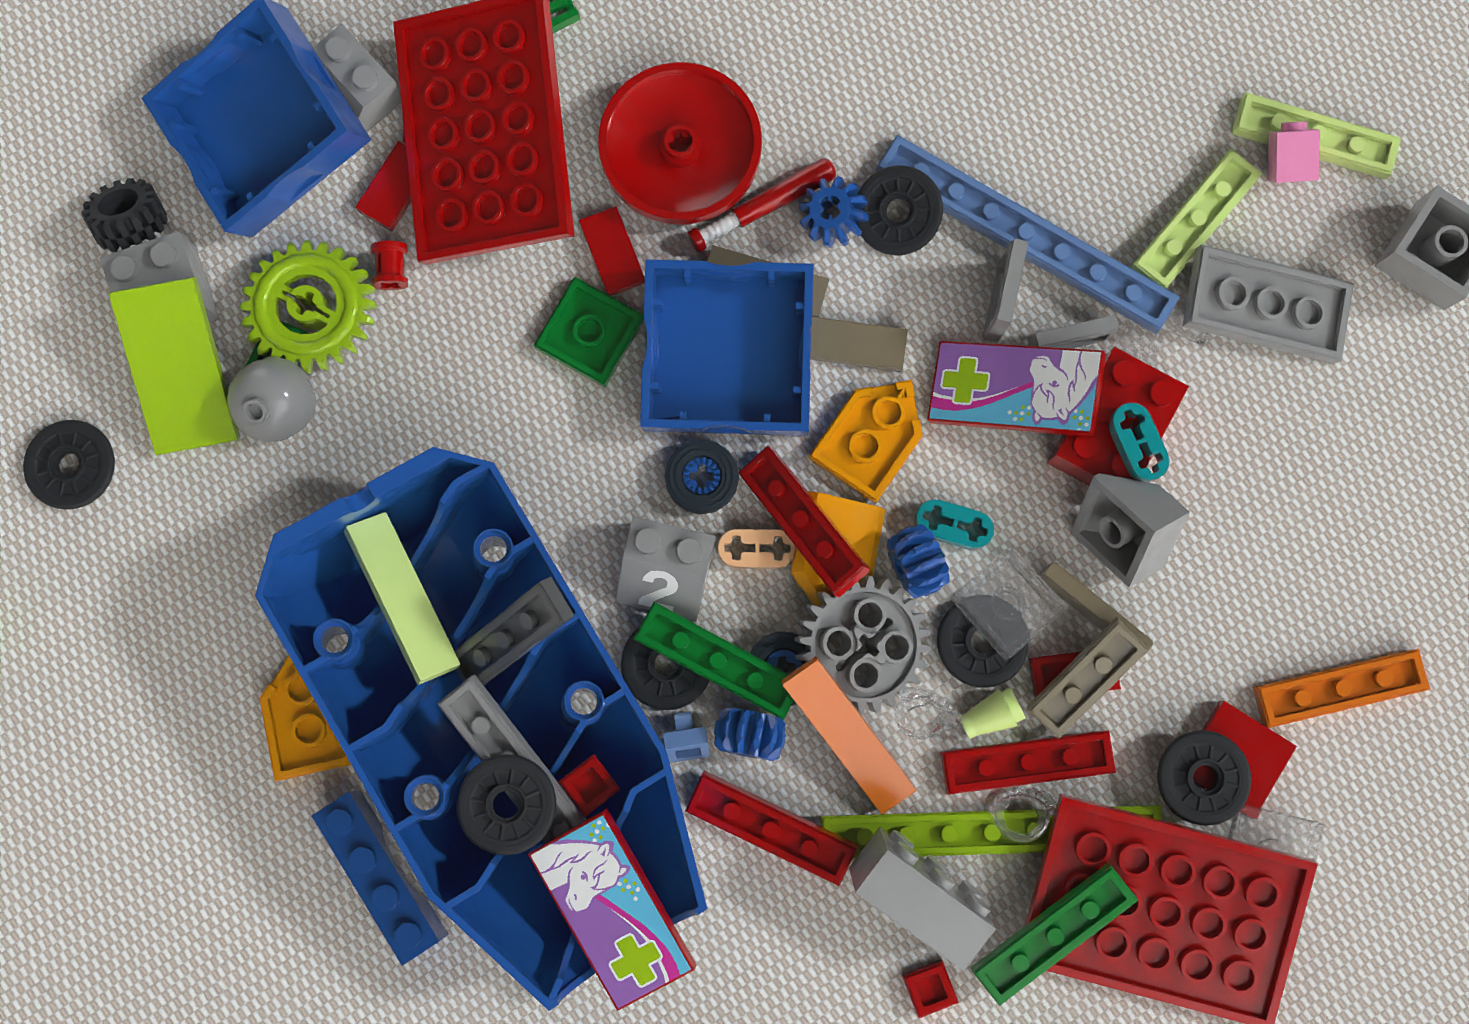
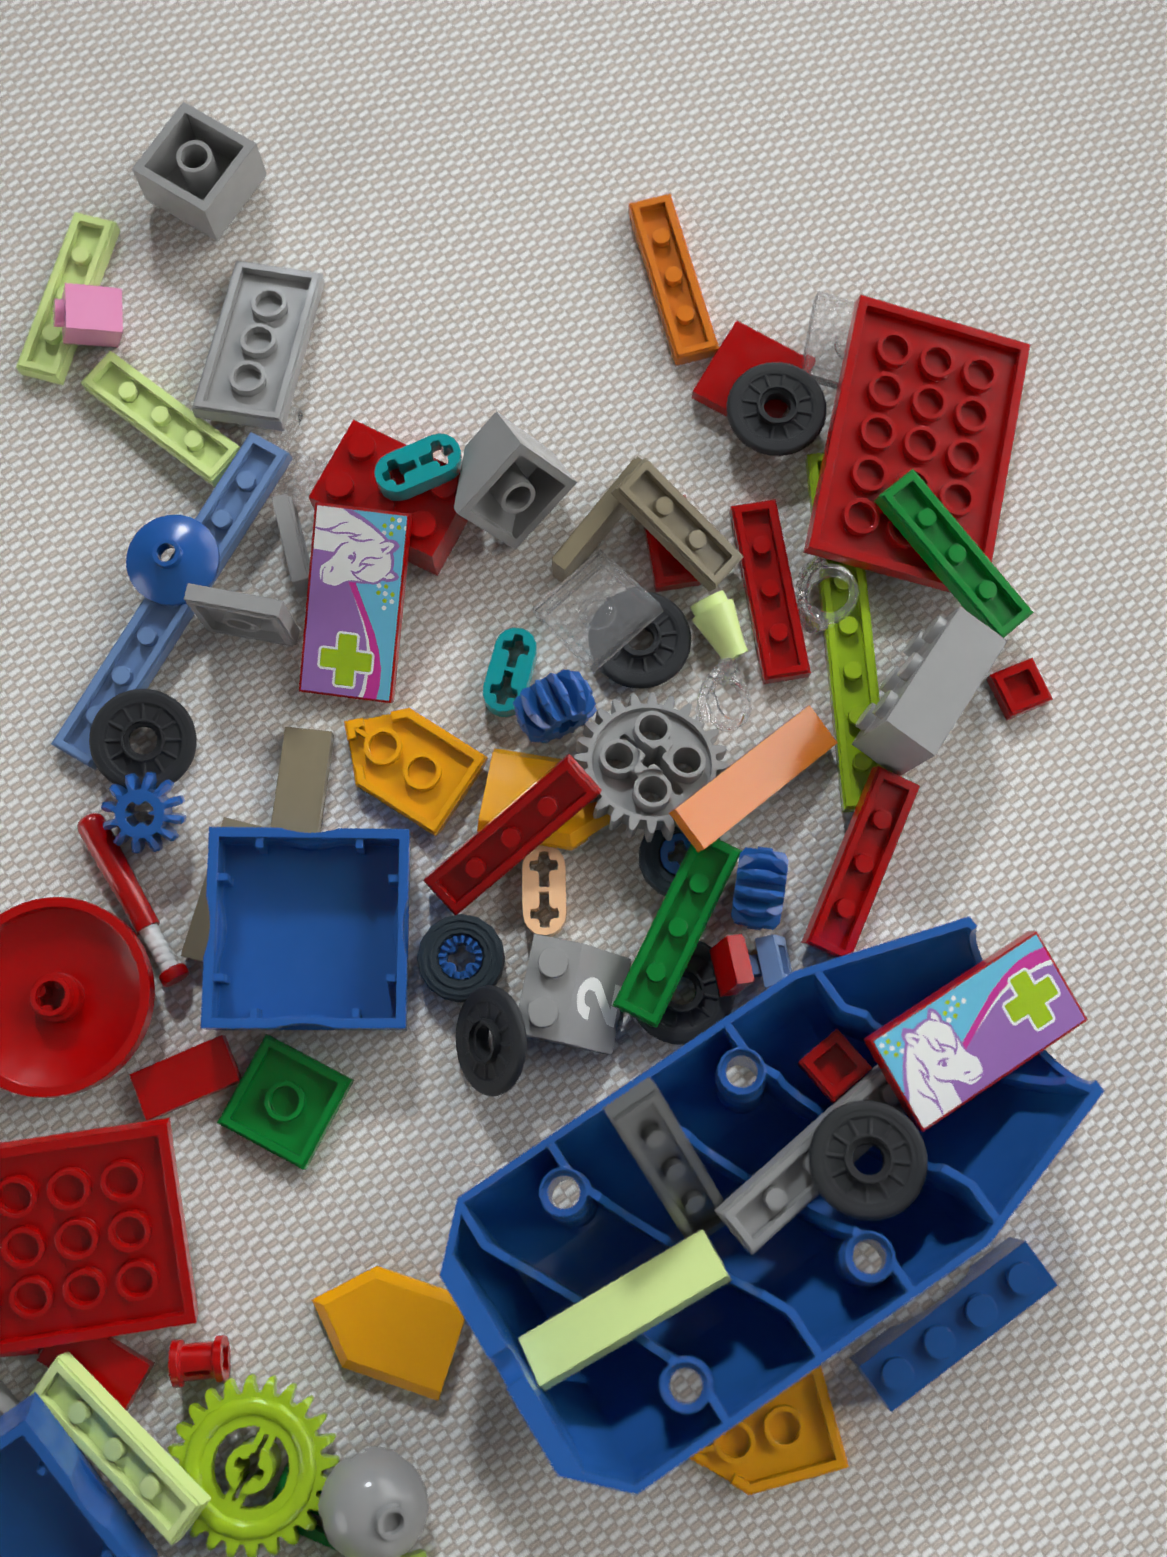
camera: 90 degrees left, 5 degrees down
(327, 205) = (121, 1448): none -> yellowish green tile
(404, 414) = (393, 1329): none -> light orange tile
(628, 498) = (493, 1011): none -> black wheel
(683, 706) = (731, 965): none -> red tile
(1058, 249) = (194, 560): none -> blue dish

